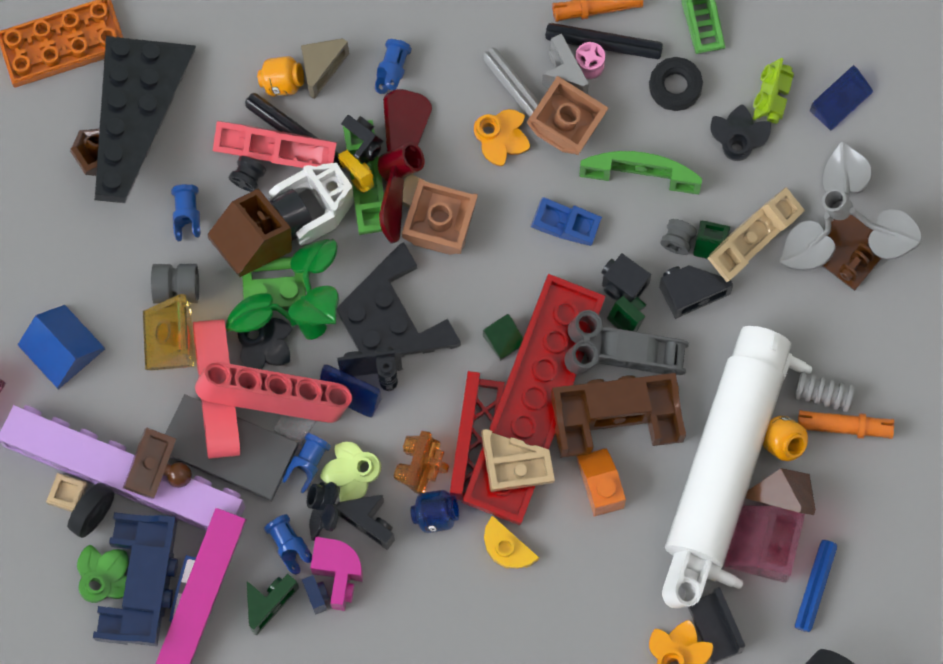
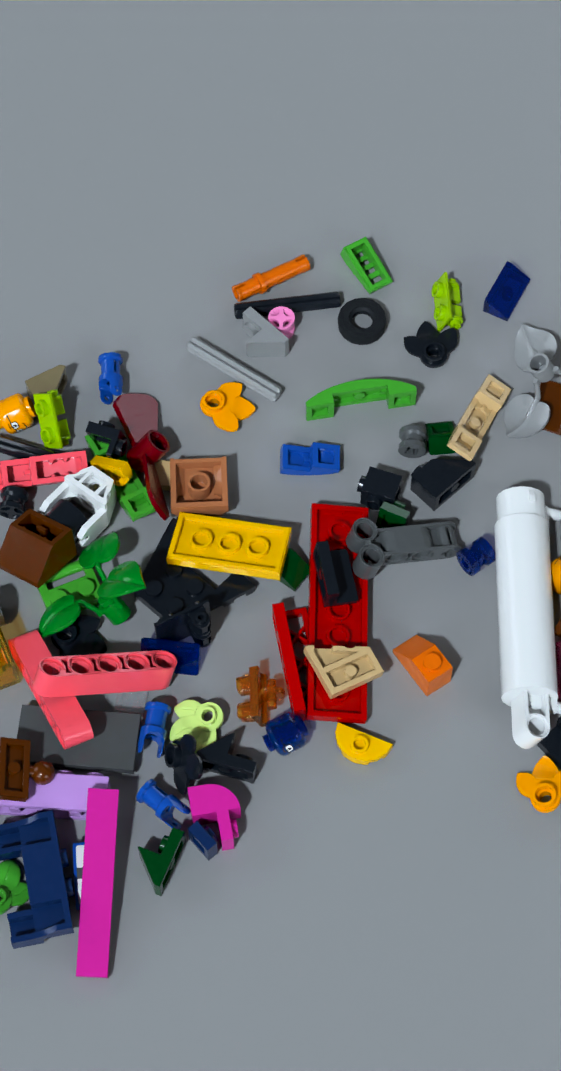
camera: 20 degrees left, 10 degrees down
(313, 109) = (53, 431): none -> lime hinge
(447, 293) = (229, 546): none -> yellow tile
(542, 360) = (334, 575): none -> black panel
(566, 117) = (280, 371): nougat slope -> none
(617, 404) = (413, 592): reddish brown bracket -> none
(698, 384) = (474, 557): none -> clear blue wheel

